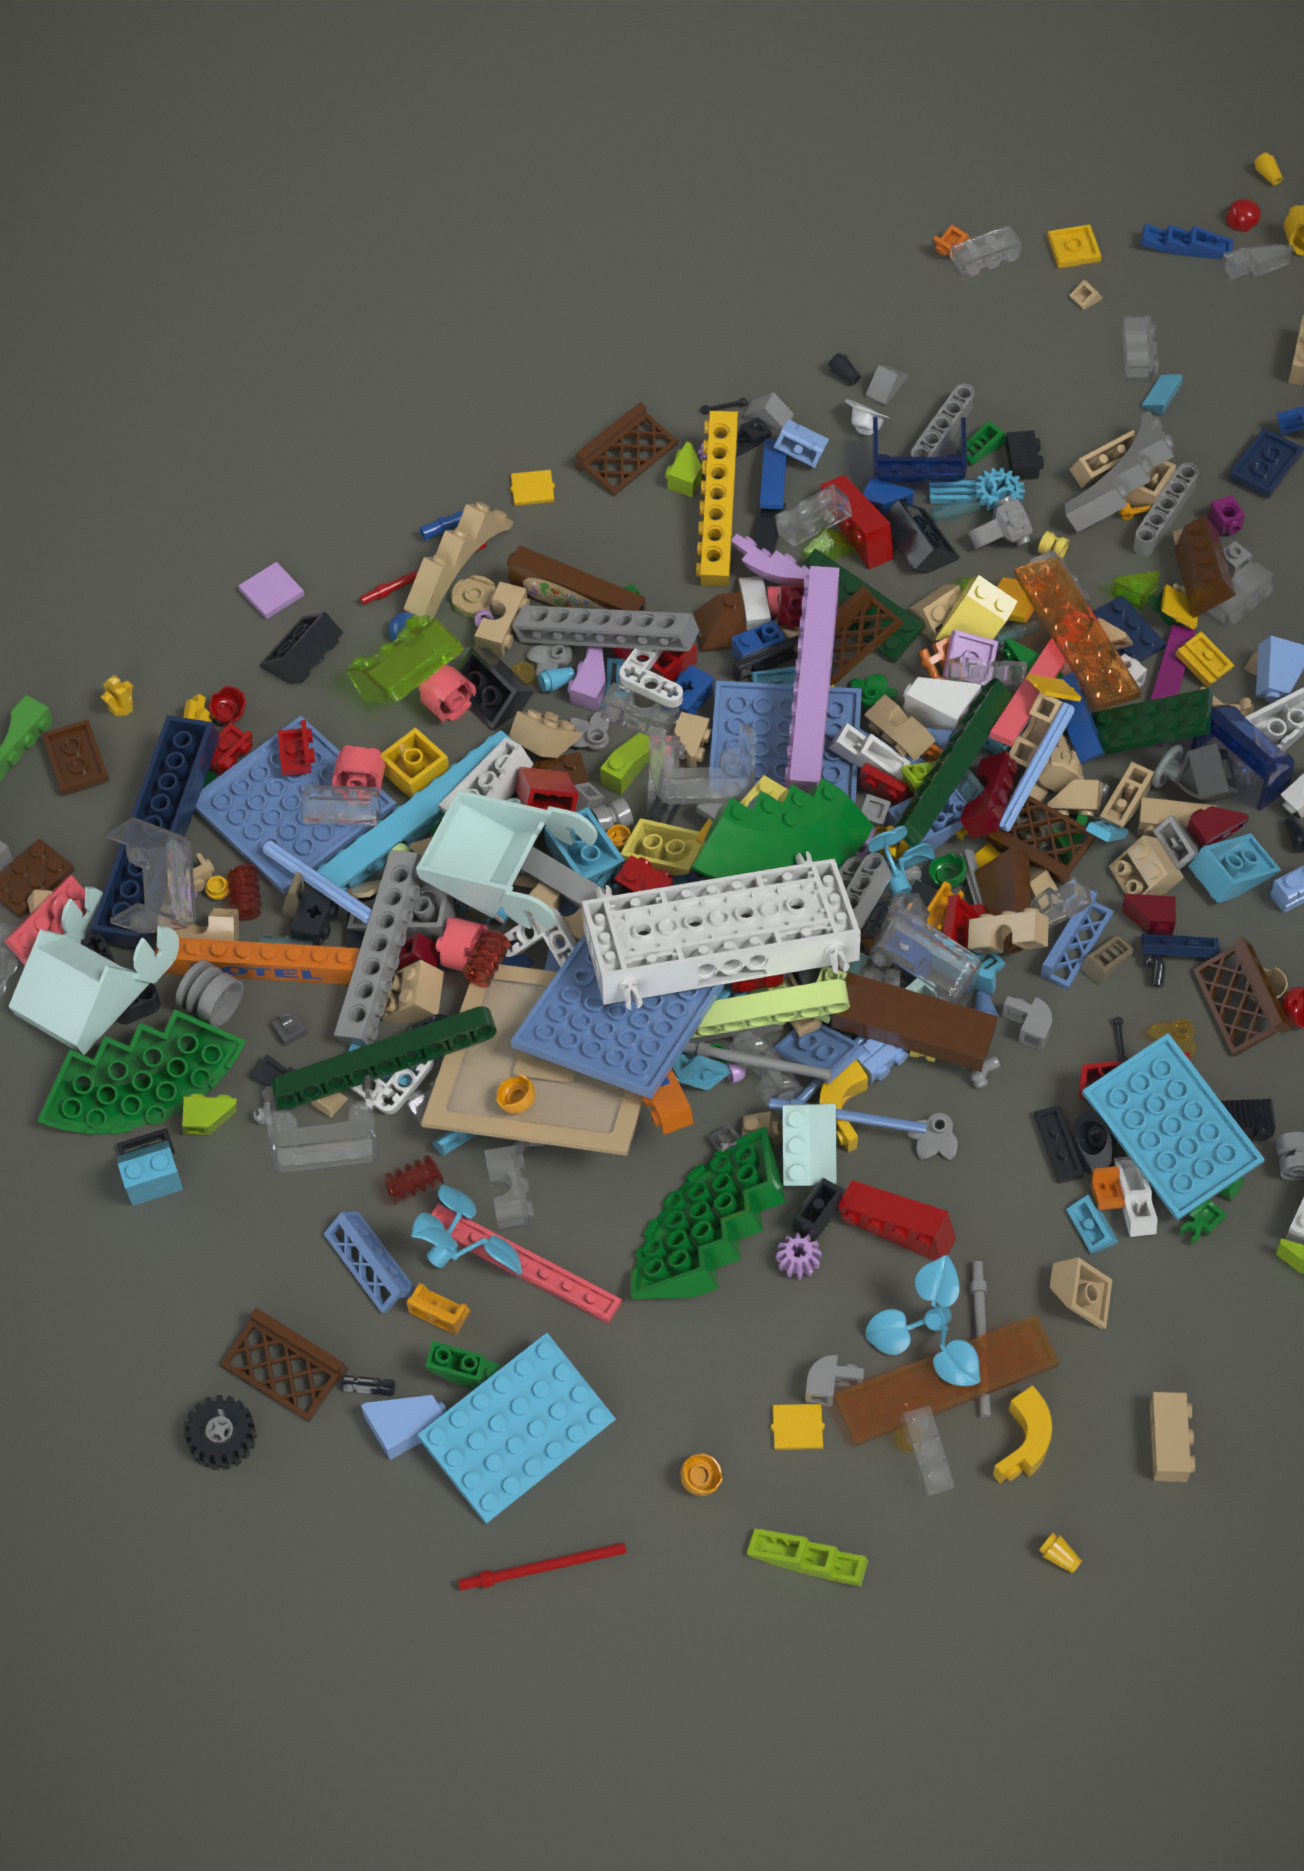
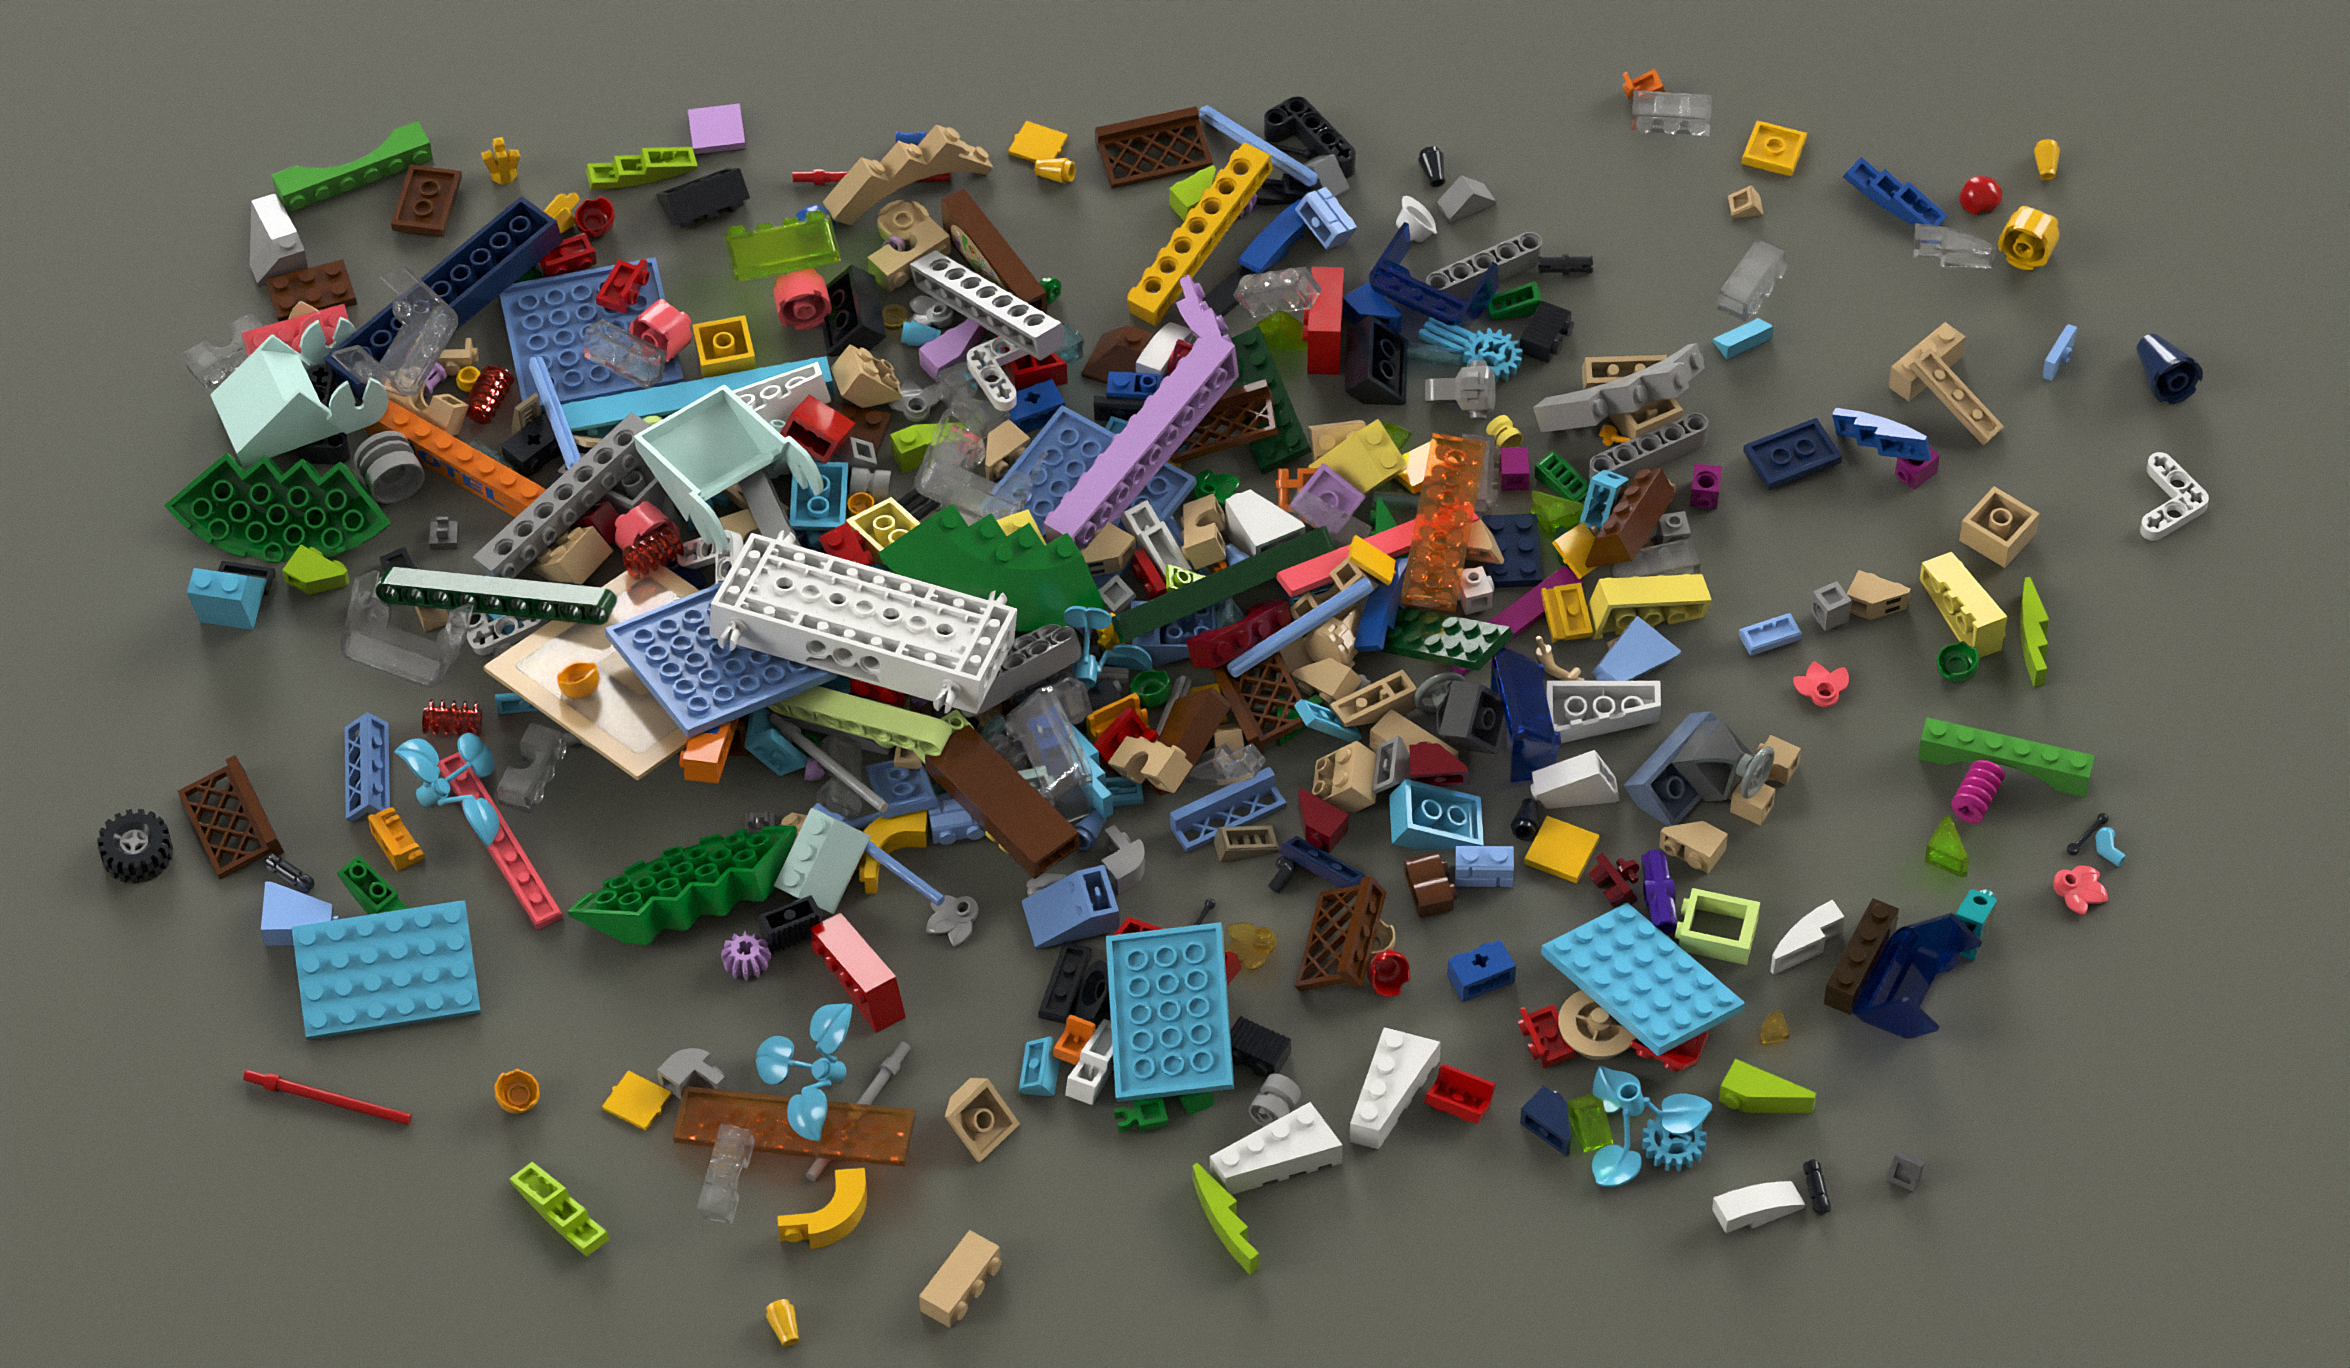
camera: 30 degrees right, 5 degrees down
(238, 647) = (648, 167): none -> lime slope
(564, 500) = (1058, 170): none -> yellow cone
(703, 411) = (1242, 135): none -> light blue axle
(736, 382) = (1301, 119): none -> black beam
(841, 772) = (1109, 550): none -> tan slope
(996, 398) = (1565, 264): none -> black pin
(1024, 1080) = (1072, 908): none -> medium blue slope
(1083, 567) = (1514, 468): none -> magenta brick
(1113, 551) = (1550, 467): none -> green slope
(1169, 554) = (1603, 494): none -> medium azure torso
(1257, 622) = (1651, 598): none -> light yellow wedge
(1270, 921) = (1429, 884): none -> reddish brown brick

